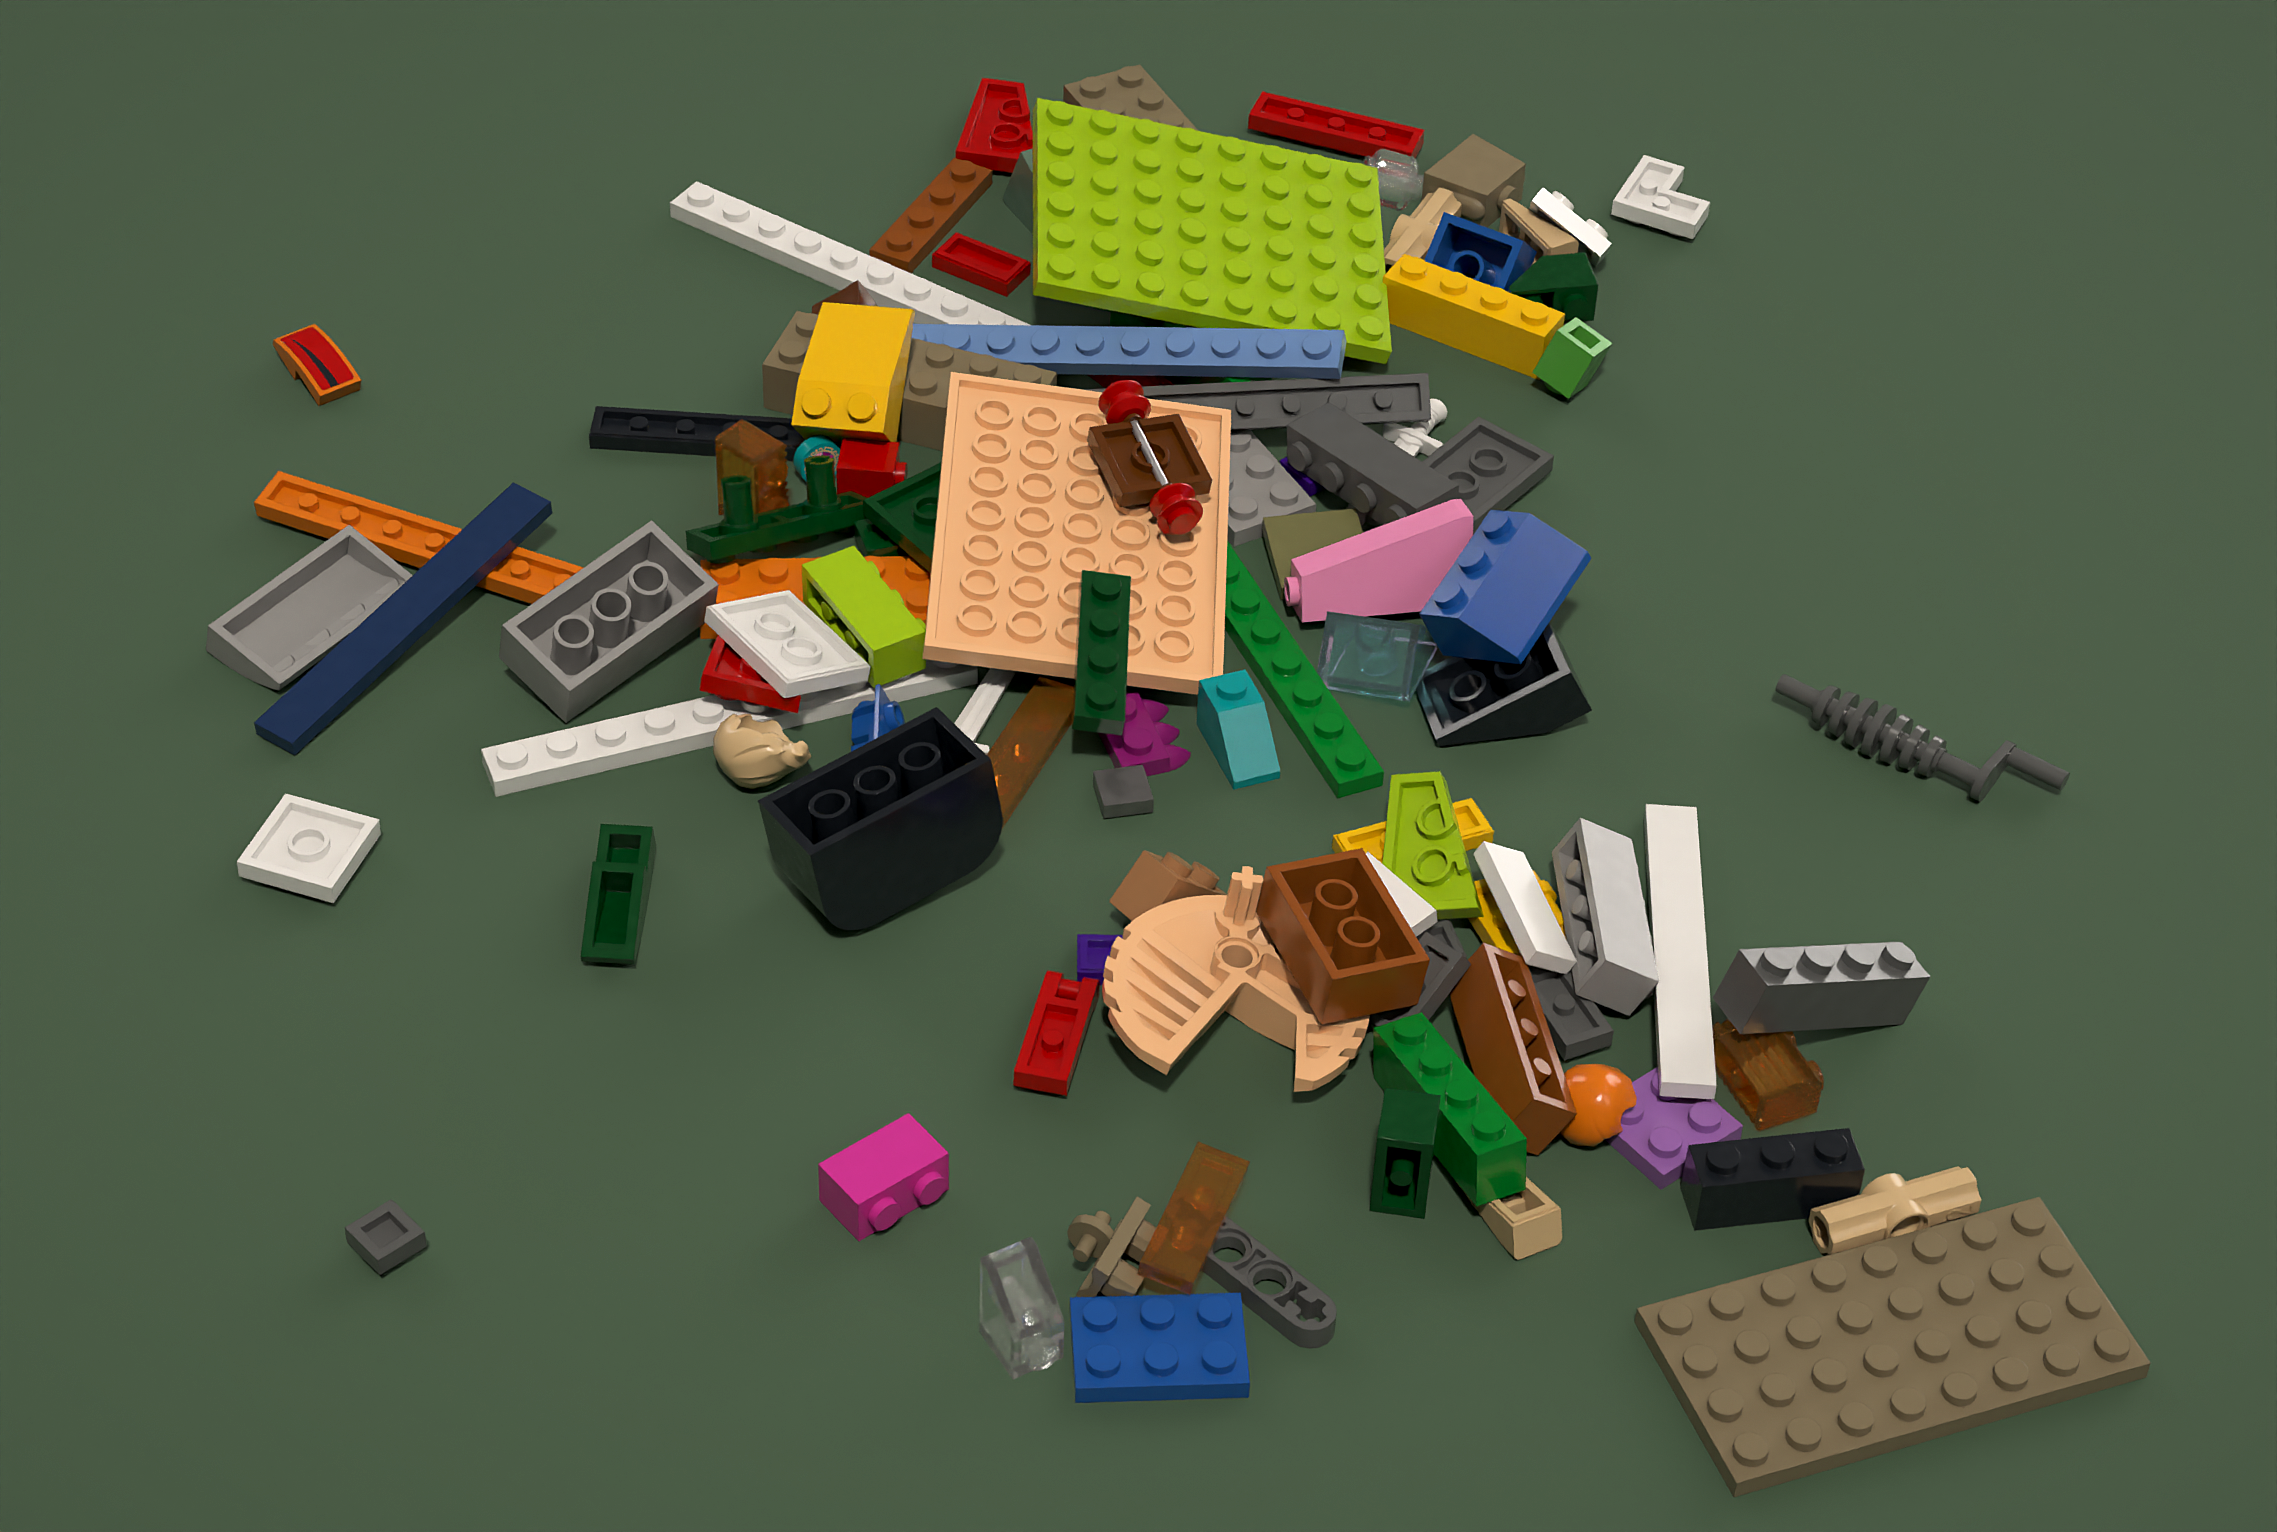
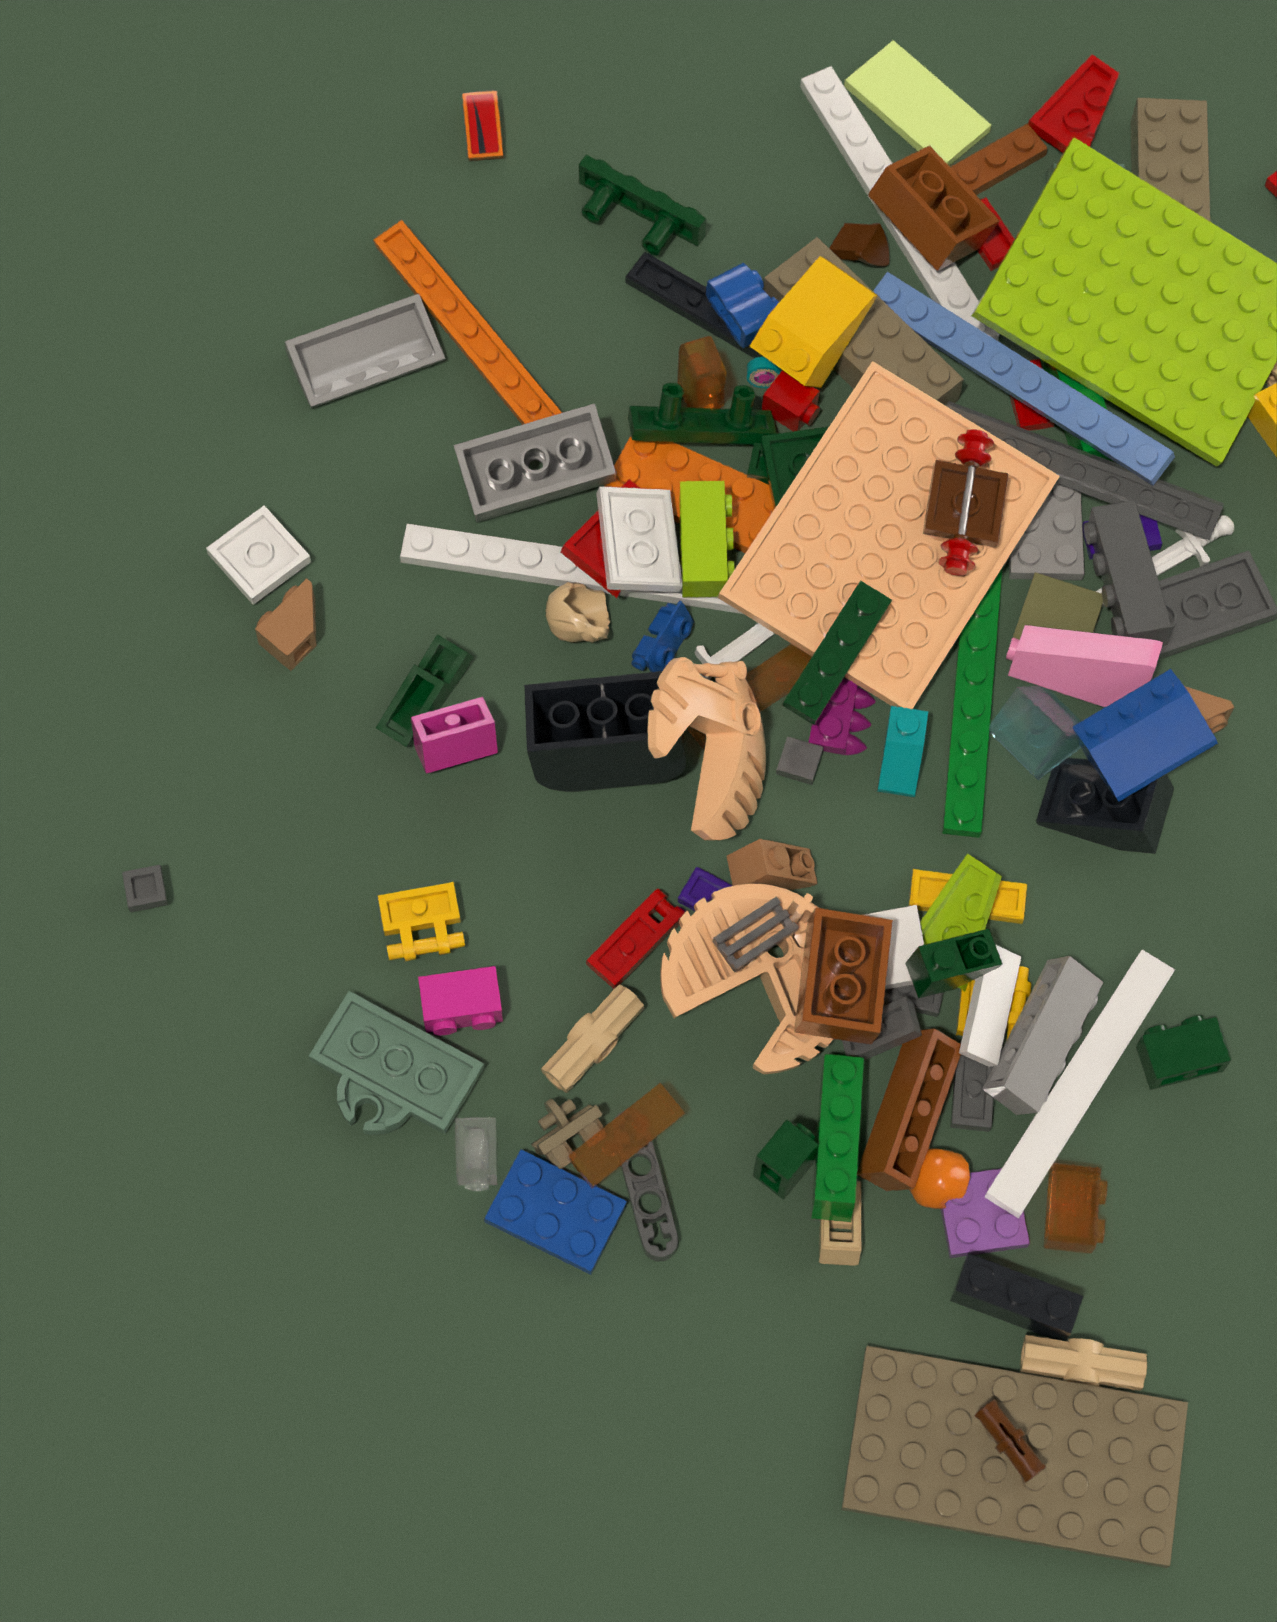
camera: 30 degrees right, 25 degrees up
(402, 619) = (416, 388): dark blue tile -> none
(402, 901) = (291, 627): none -> medium nougat slope
(559, 361) = (649, 204): none -> dark green plate
(690, 915) = (454, 735): none -> dark pink brick
(748, 393) = (740, 302): none -> blue brick
(766, 1111) = (420, 910): none -> yellow plate
(819, 185) = (917, 104): none -> yellowish green tile
(845, 1286) = (393, 1068): none -> sand green plate
(911, 240) = (933, 207): none -> dark orange brick
(1002, 734) = (734, 739): none -> light nougat piece
(1077, 1148) = (592, 1038): none -> tan piece
(1219, 920) = (781, 916): none -> flat silver tile
(1454, 874) = (952, 962): none -> dark green slope
(1766, 875) = (1182, 1051): none -> dark green brick
(1821, 987) = (1142, 1175): dark grey brick -> none
(1880, 1309) = (1010, 1441): none -> reddish brown pin

